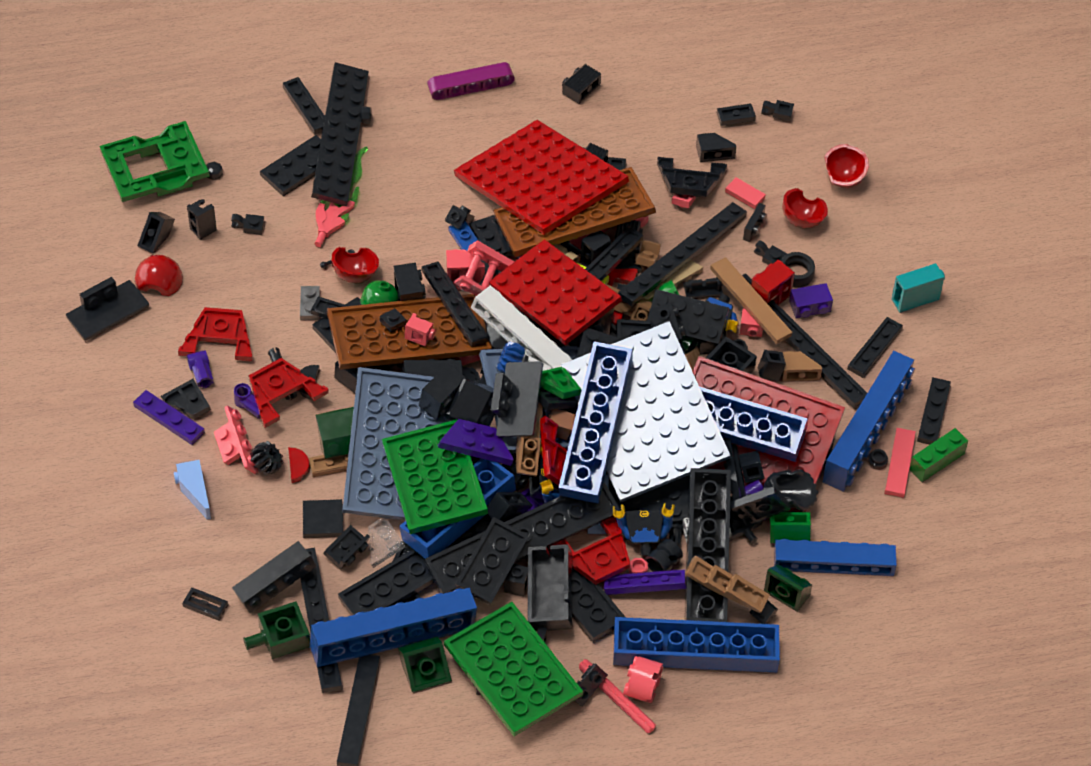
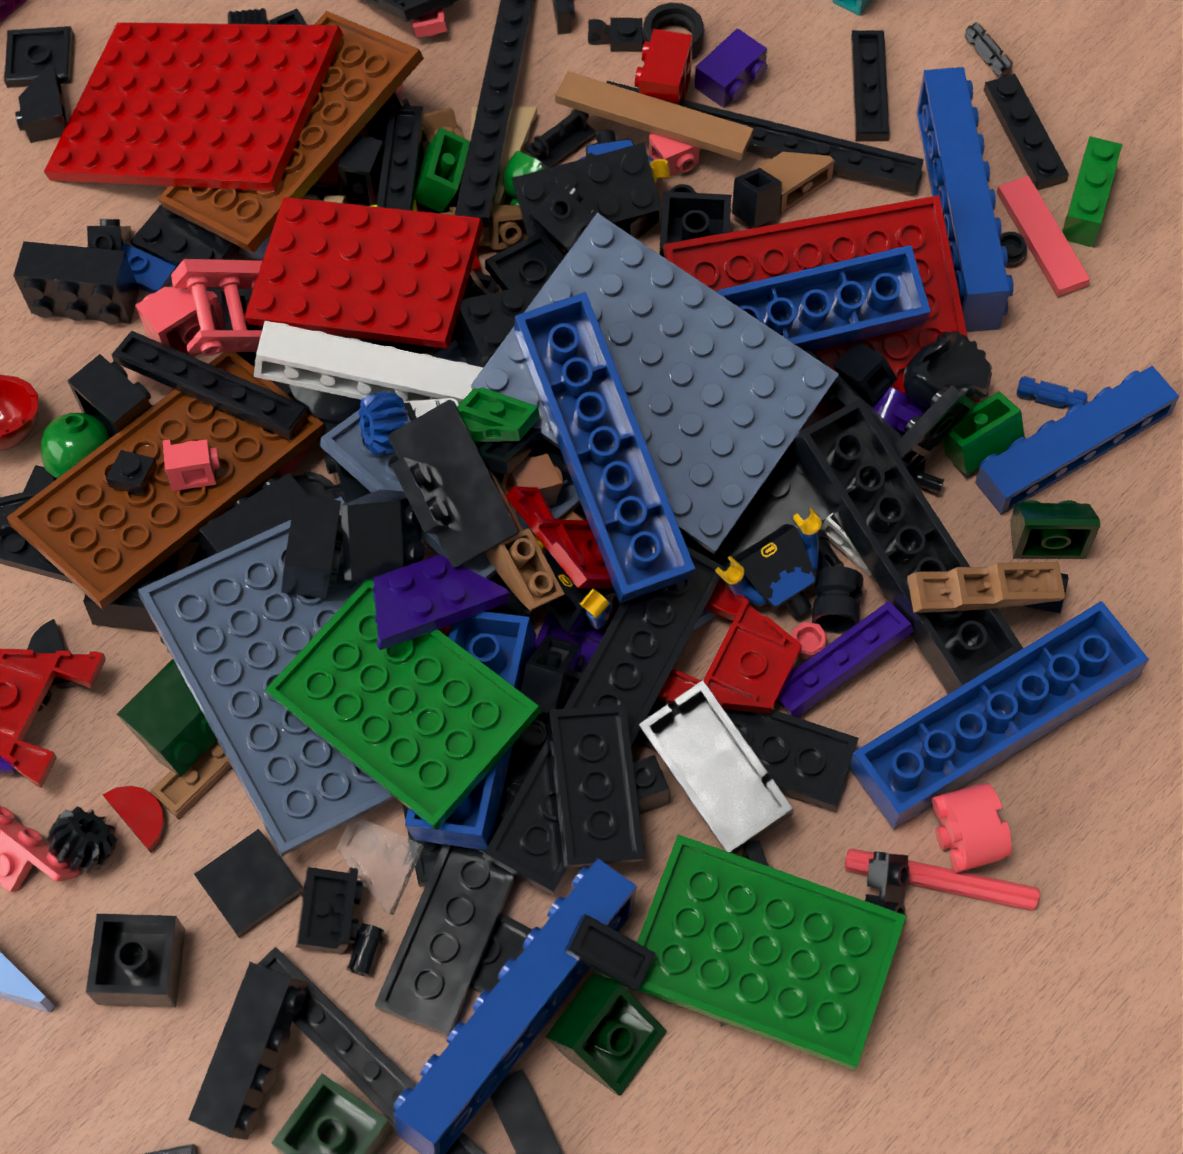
camera: 30 degrees left, 10 degrees up
(255, 517) = (136, 960): none -> black brick
(351, 572) = (365, 950): none -> black pin
(430, 227) = (76, 282): none -> black brick
(445, 624) = (609, 952): none -> black tile
(474, 140) = (42, 107): none -> black slope
(490, 116) = (33, 49): none -> black tile
(630, 269) = (441, 170): none -> green brick
(840, 531) = (1050, 393): none -> blue axle
(948, 363) = (988, 49): none -> black axle

